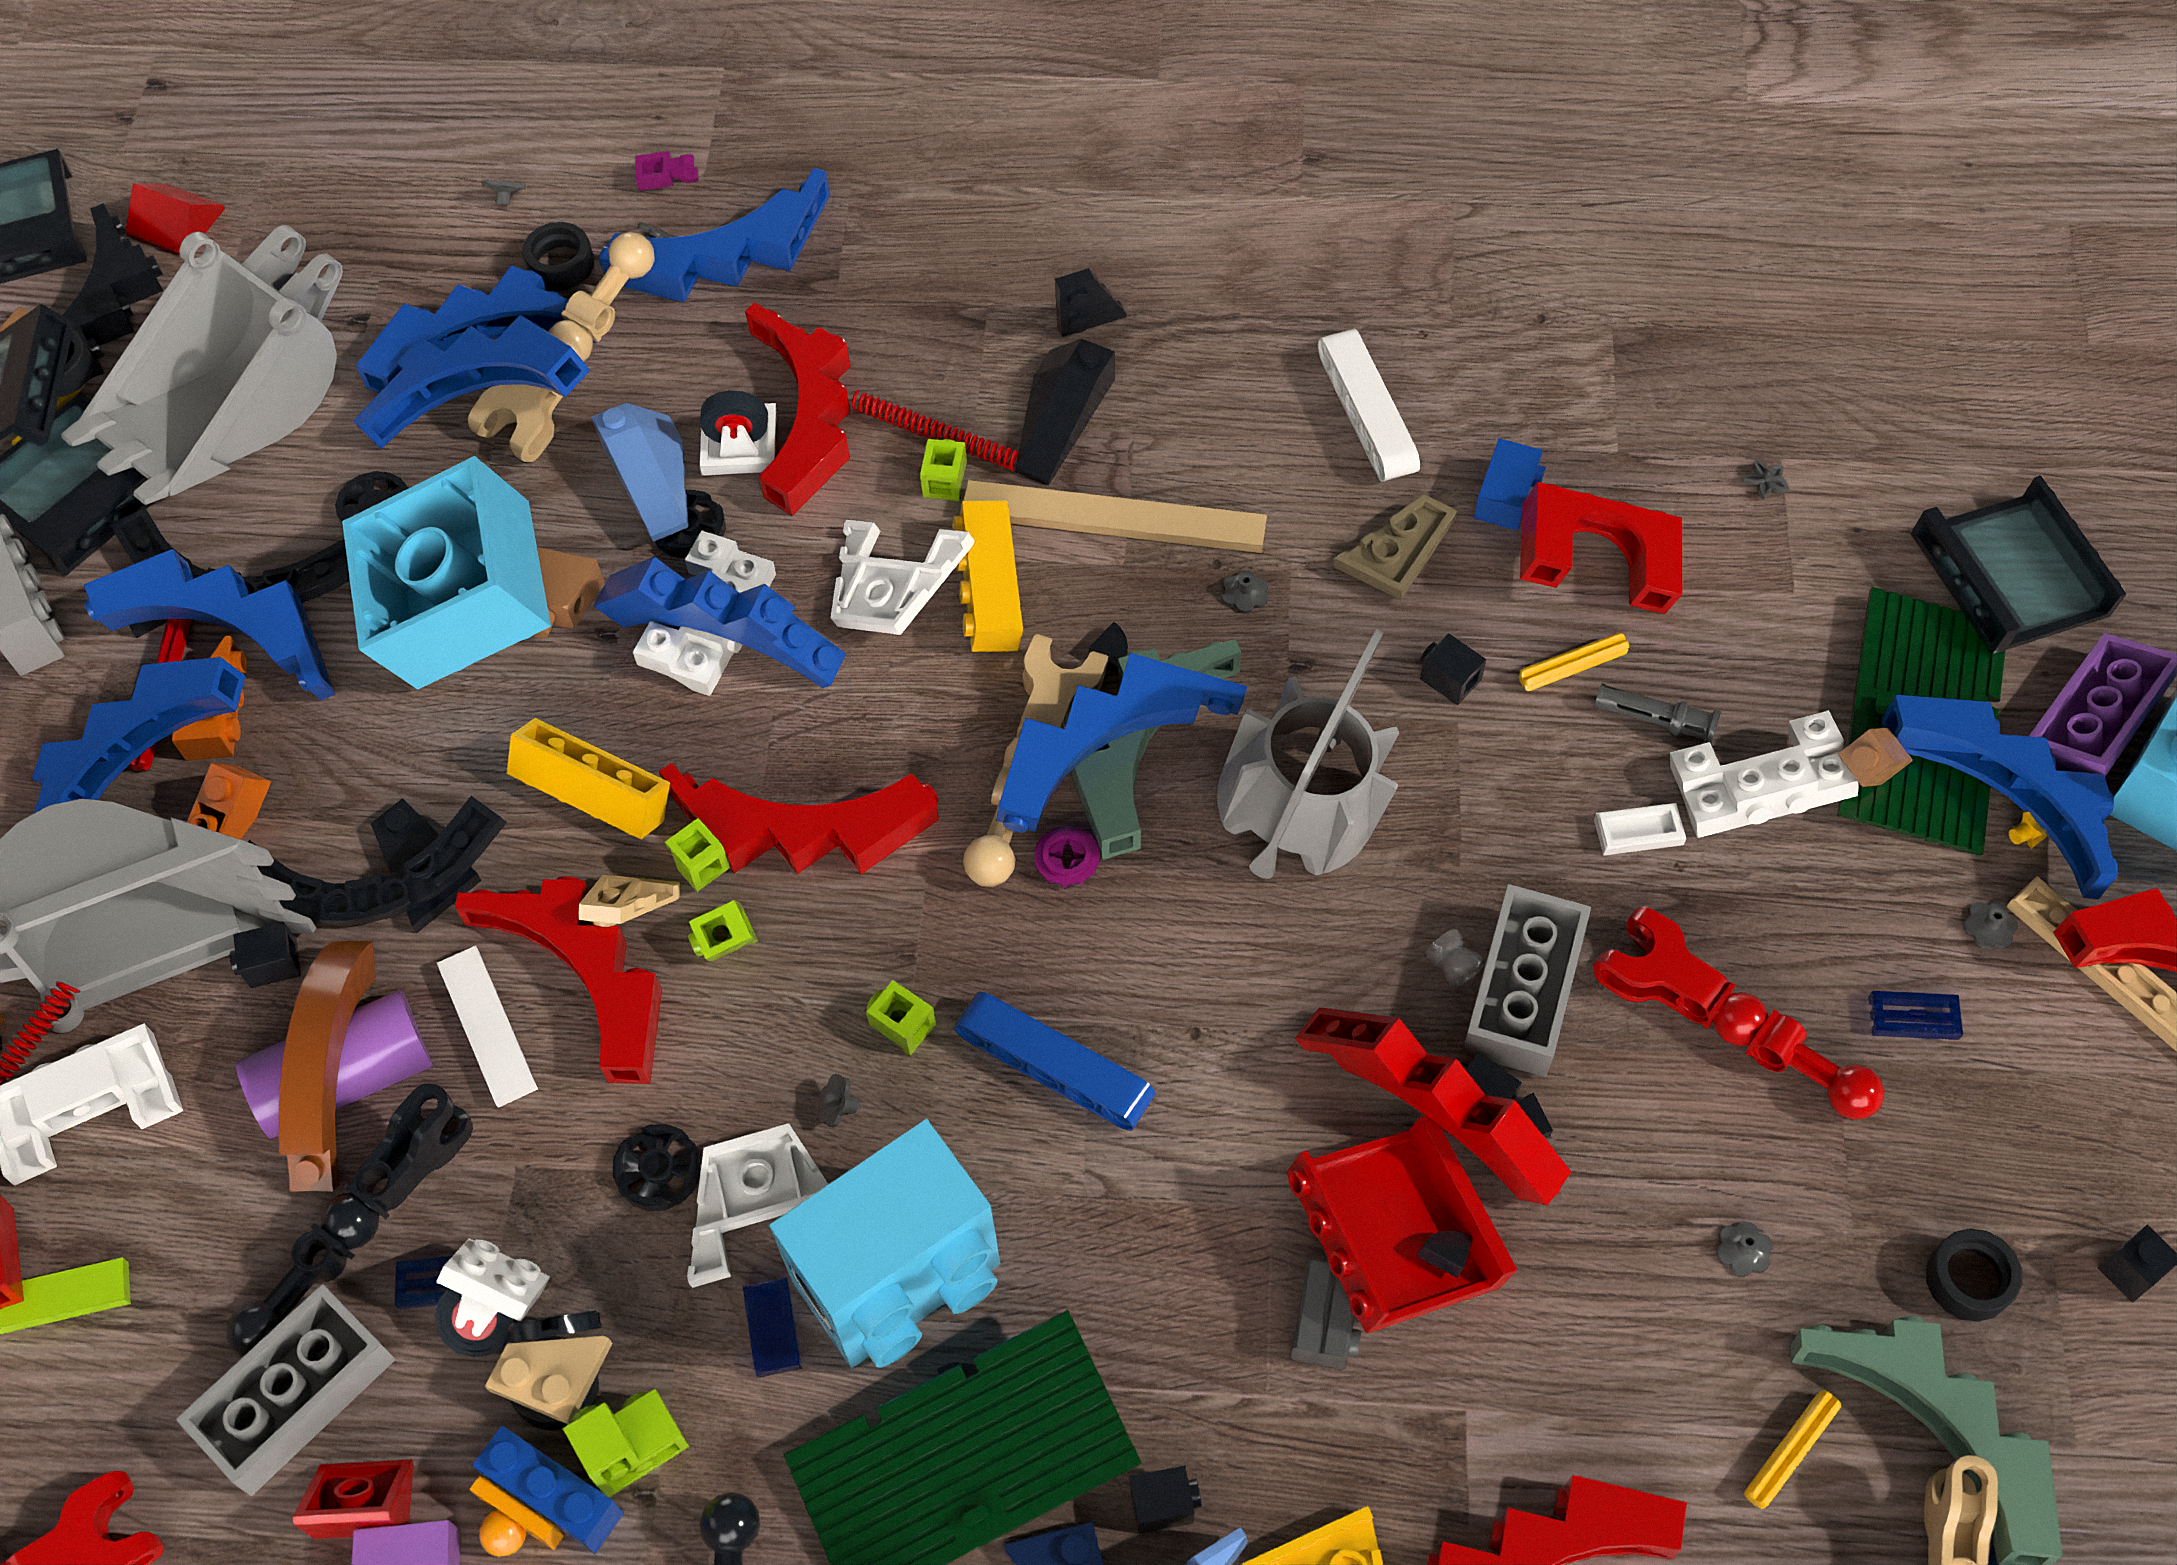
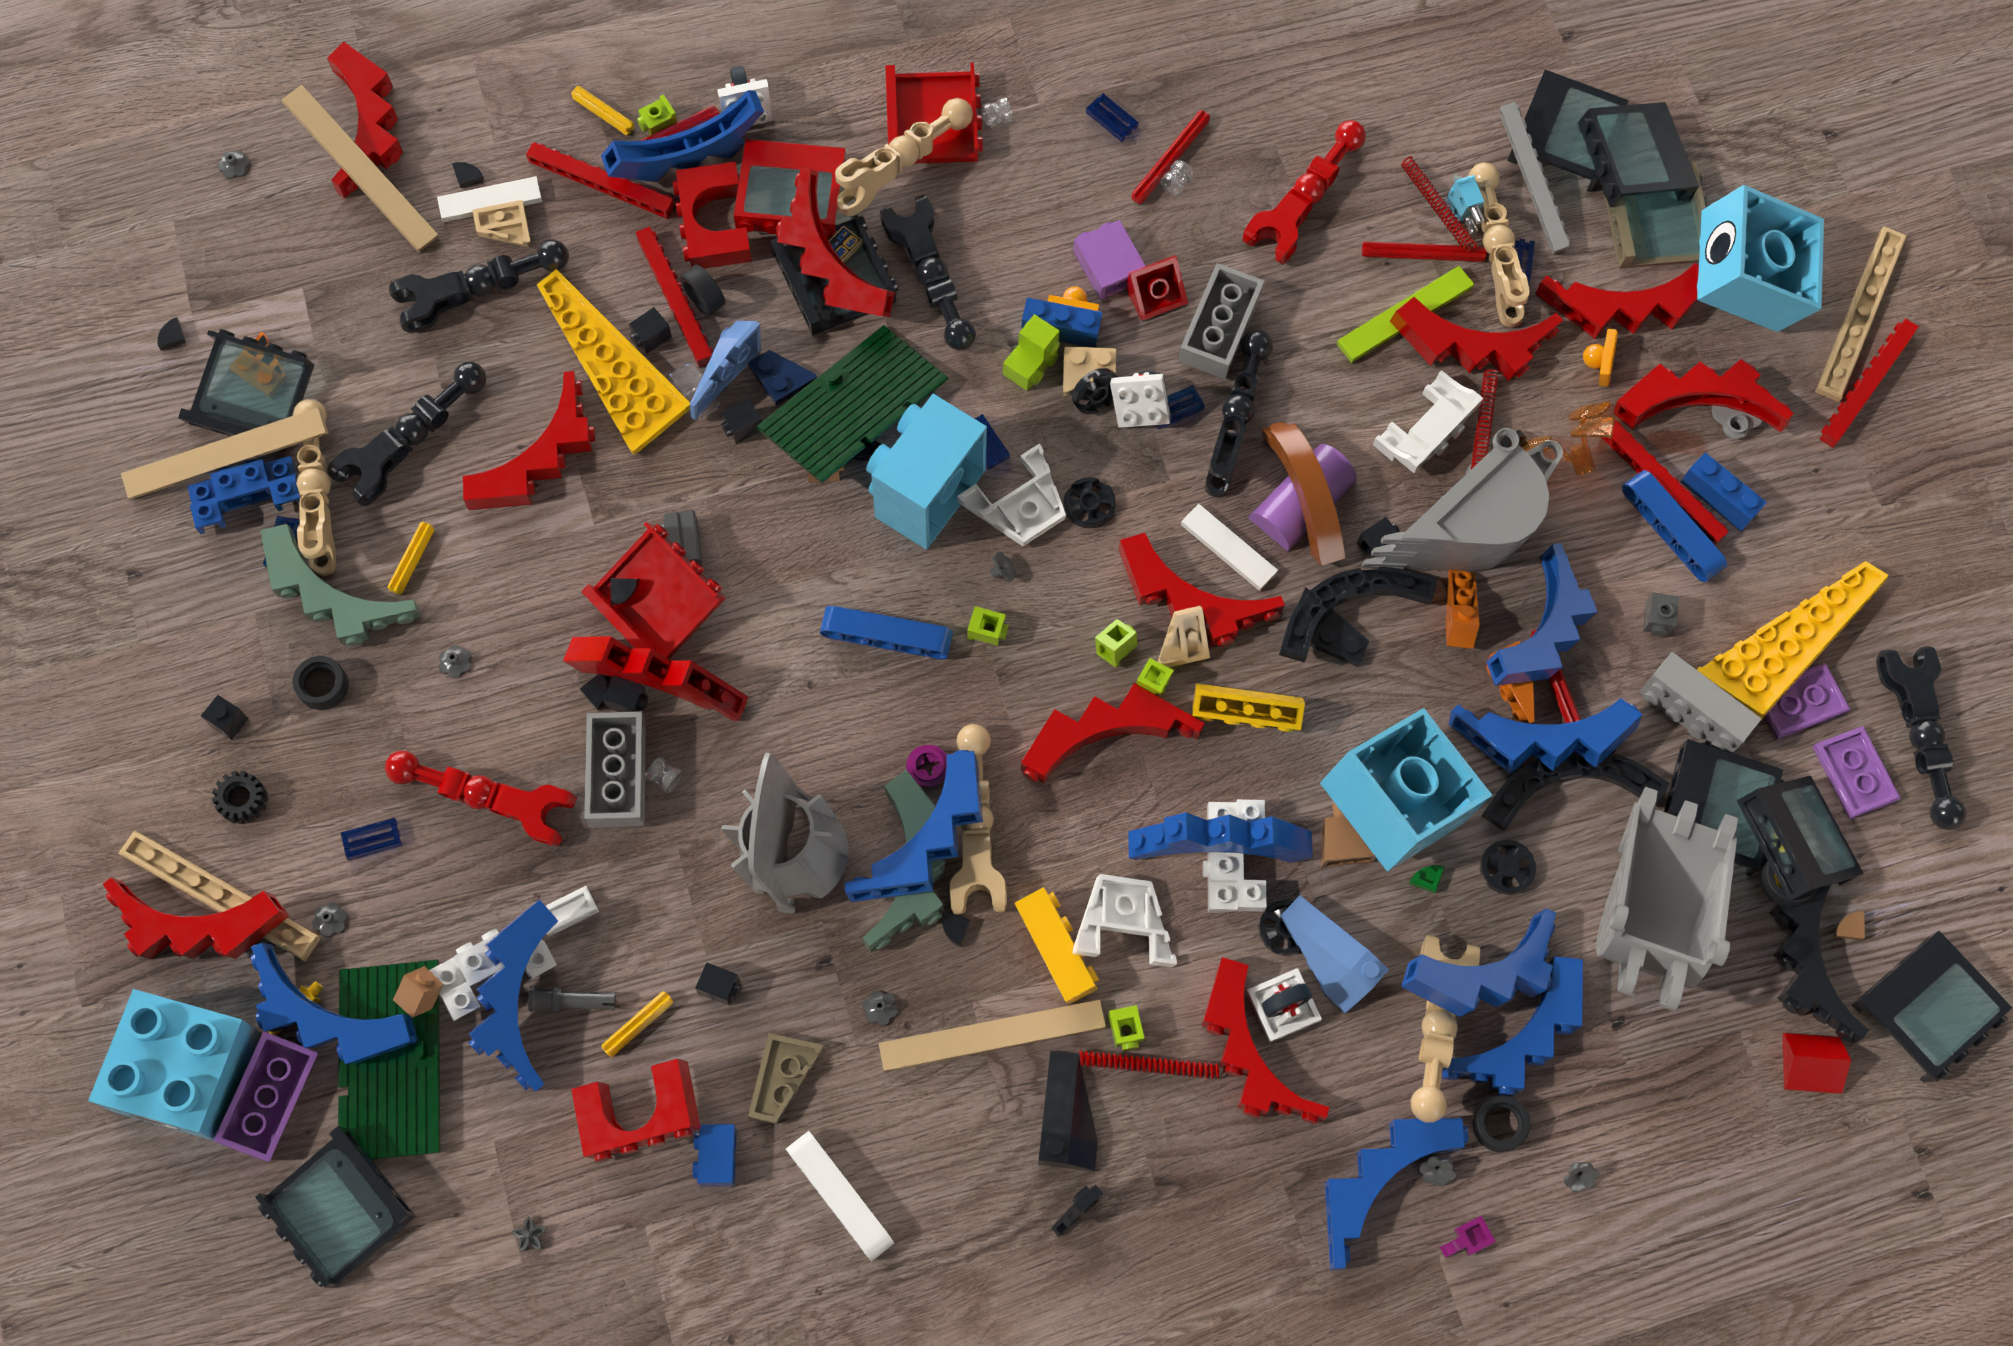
camera: 155 degrees right, 10 degrees up
(1739, 749) = (501, 991): none -> blue arch
(2133, 1115) = (232, 783): none -> black tyre

